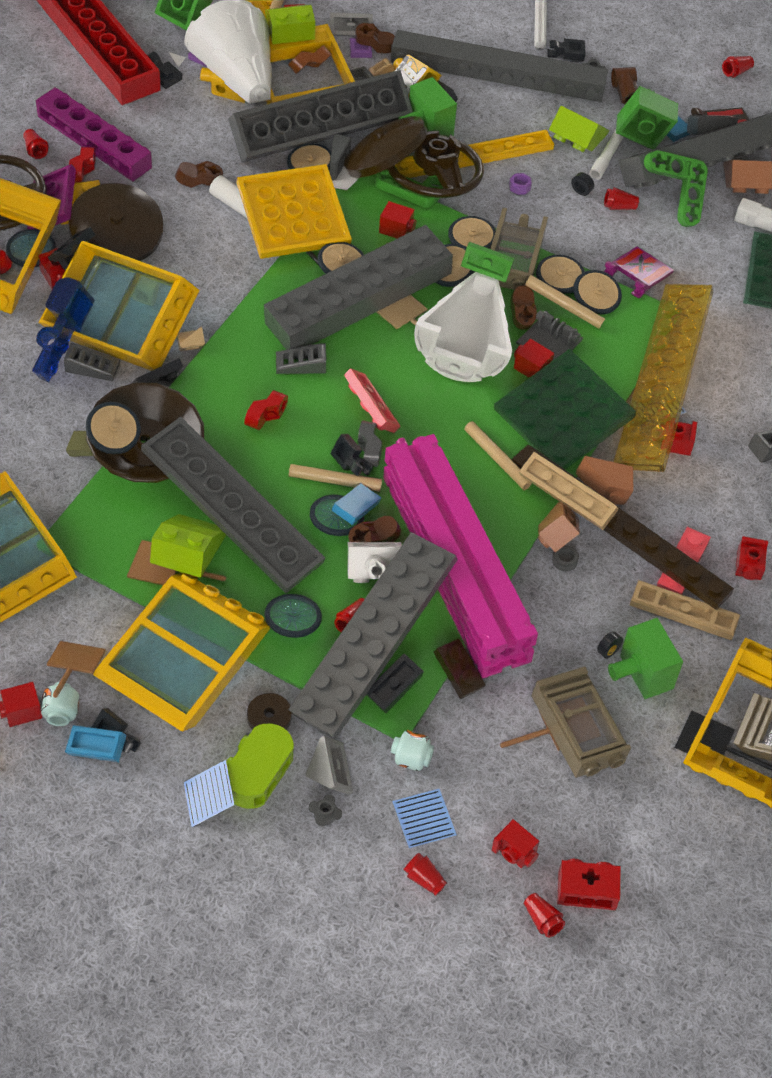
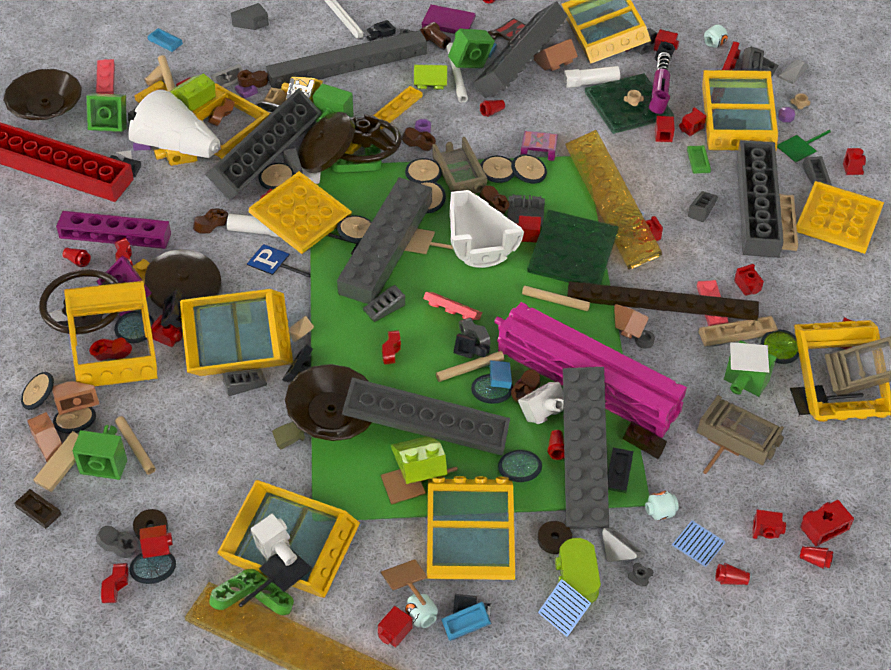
camera: 30 degrees left, 5 degrees down
(70, 306) = (208, 353): clear blue plate -> none
(113, 428) = (312, 409): tan wheel -> none
(228, 248) = (270, 259): none -> blue piece
(396, 220) = (370, 186): red brick -> none
(487, 262) = (456, 181): bright green plate -> none
(504, 197) = (421, 139): none -> reddish brown piece
(564, 301) = (516, 183): tan piece -> none
(568, 490) = (621, 295): tan plate -> none
(582, 183) = (461, 108): black tile -> none
(607, 478) = (631, 276): nougat slope -> none
(610, 644) = (716, 373): black tile -> none
(649, 643) = (749, 357): none -> white sticker
(661, 73) = (449, 19): none -> magenta tile
(686, 175) = (526, 71): bright green beam -> none
(705, 123) = (506, 36): dark grey slope -> none
(715, 654) = (781, 345): none -> clear neon green wheel

